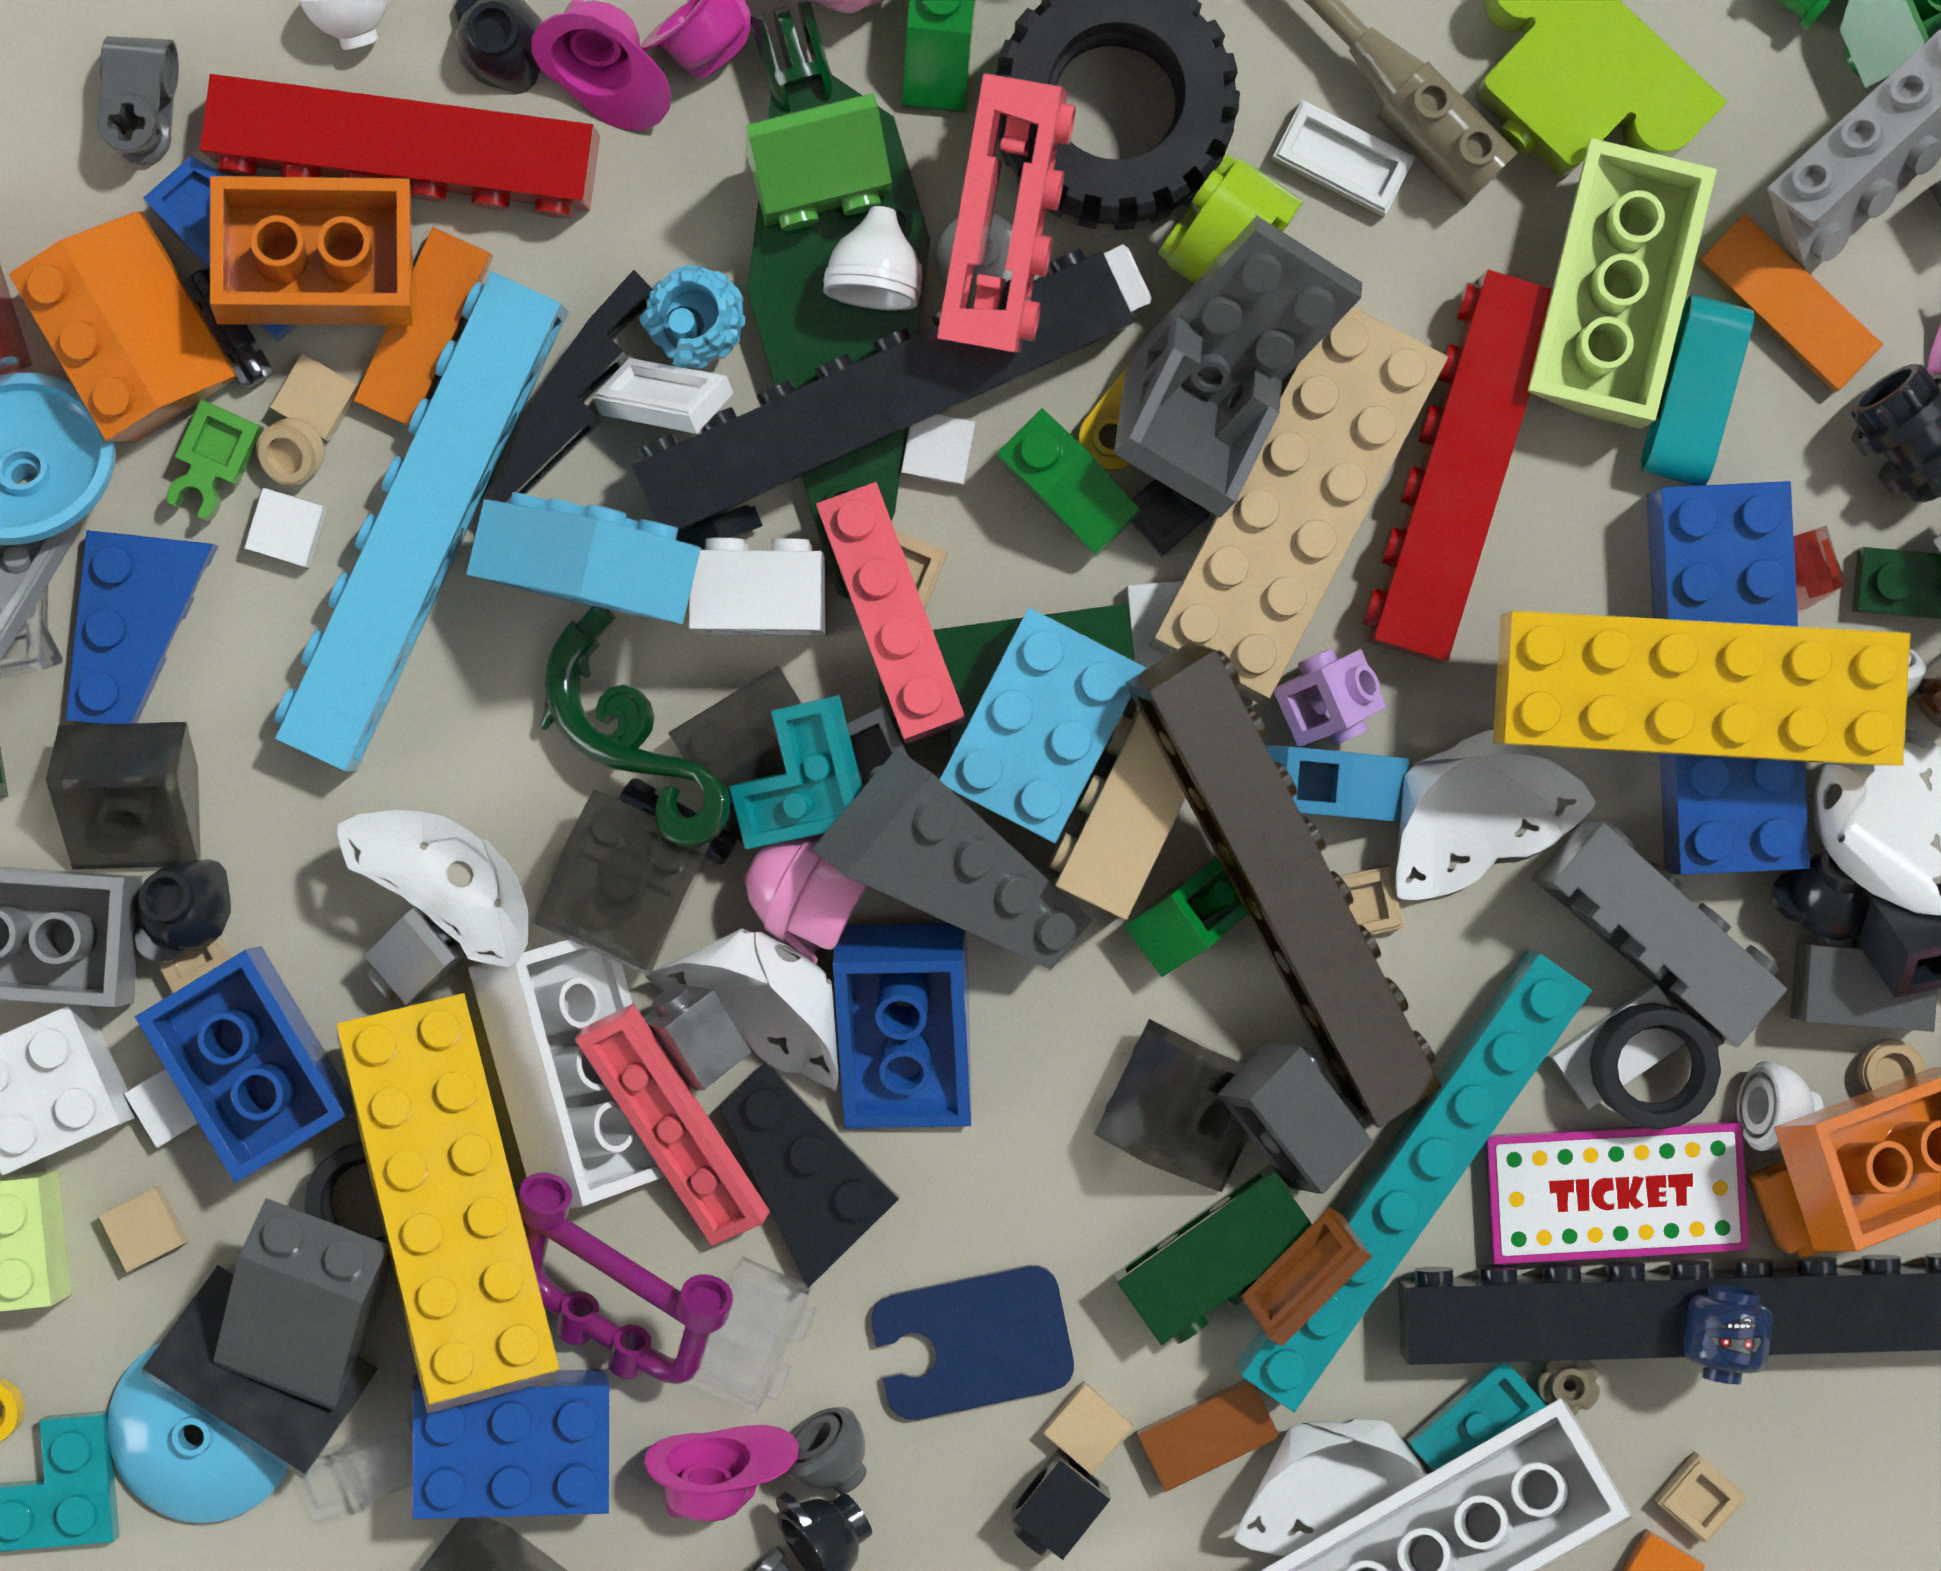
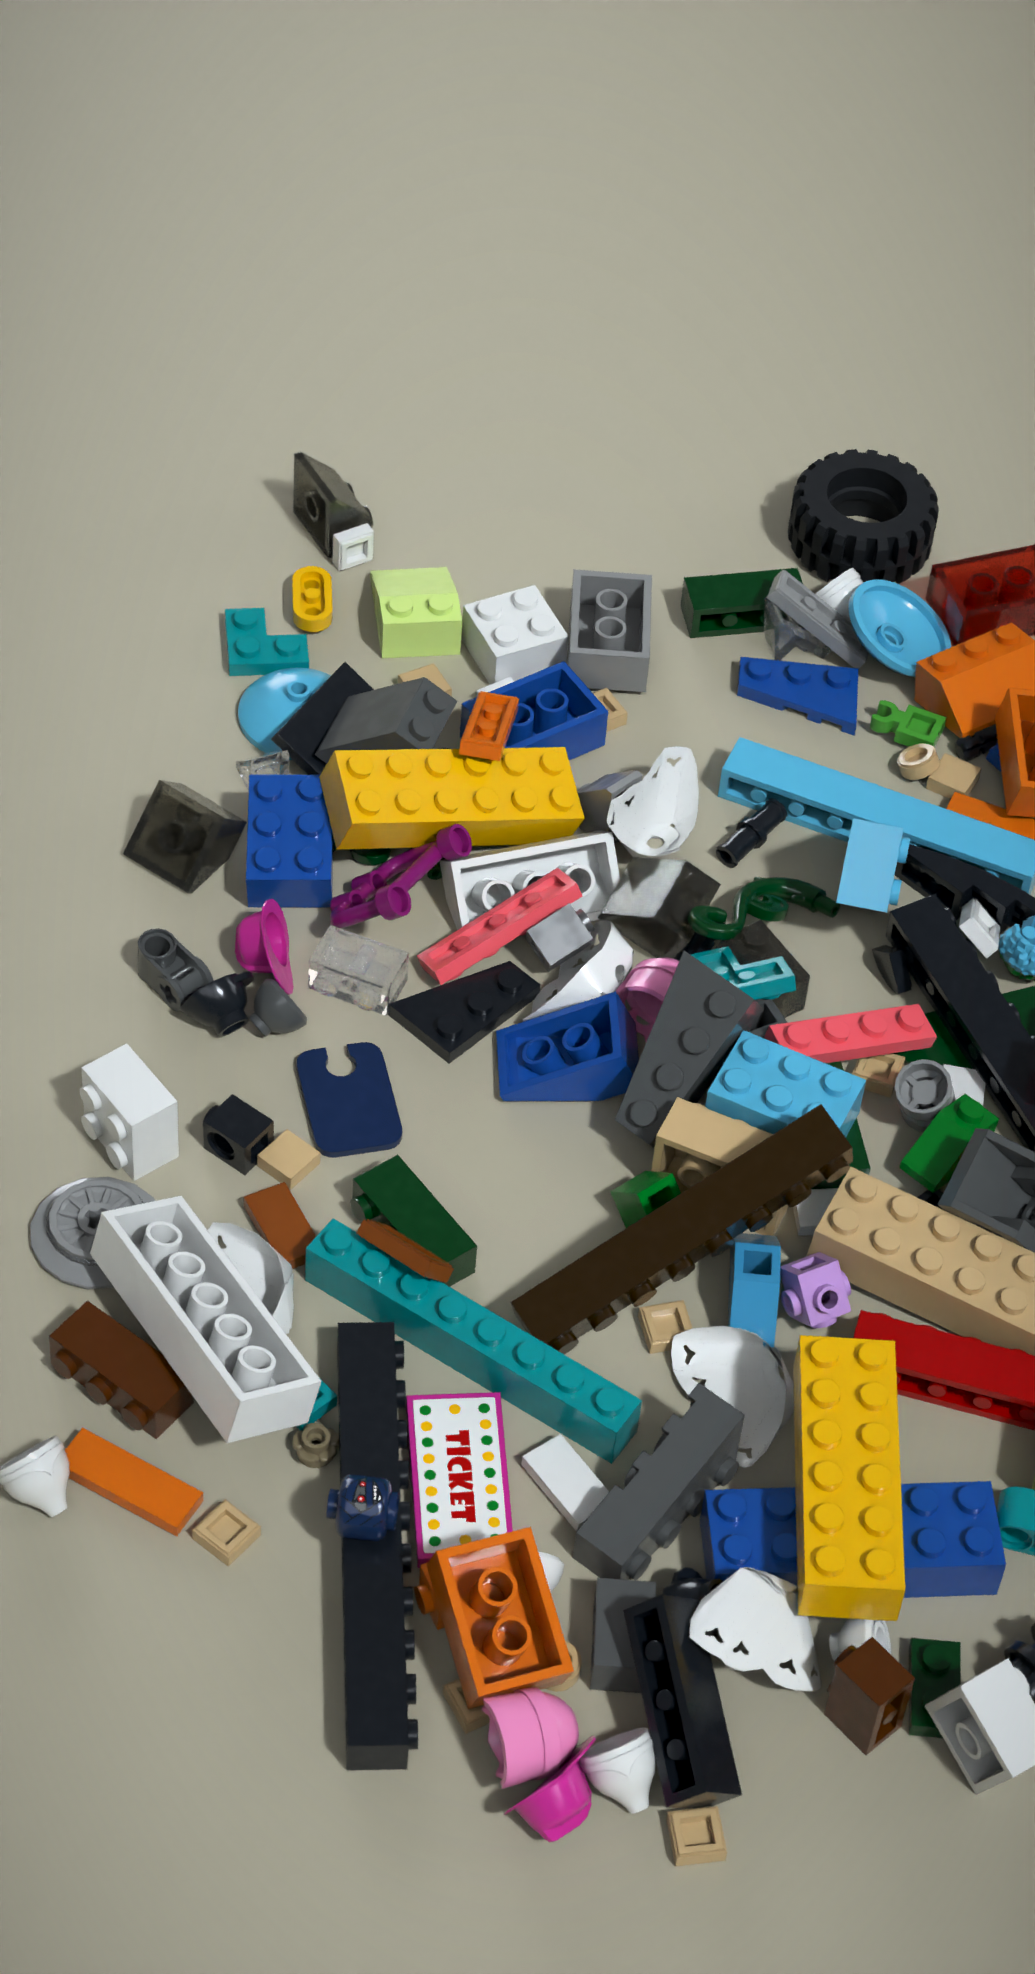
camera: 85 degrees right, 40 degrees down
(126, 794) = (696, 679): clear smoke slope -> none
(182, 909) = (630, 697): black piece -> none
(286, 527) = (870, 762): white tile -> none
(321, 1148) = (489, 726): none -> orange tile
(449, 726) = (751, 833): none -> black pin
(759, 590) = (858, 963): white brick -> none
(989, 509) = (923, 1086): none -> light grey wheel
(1171, 1109) = (518, 1210): clear smoke slope -> none
(1296, 1116) = (516, 1260): dark grey brick -> none
(1693, 1096) = (552, 1453): black tyre -> none
(1817, 563) = (945, 1605): clear red plate -> none

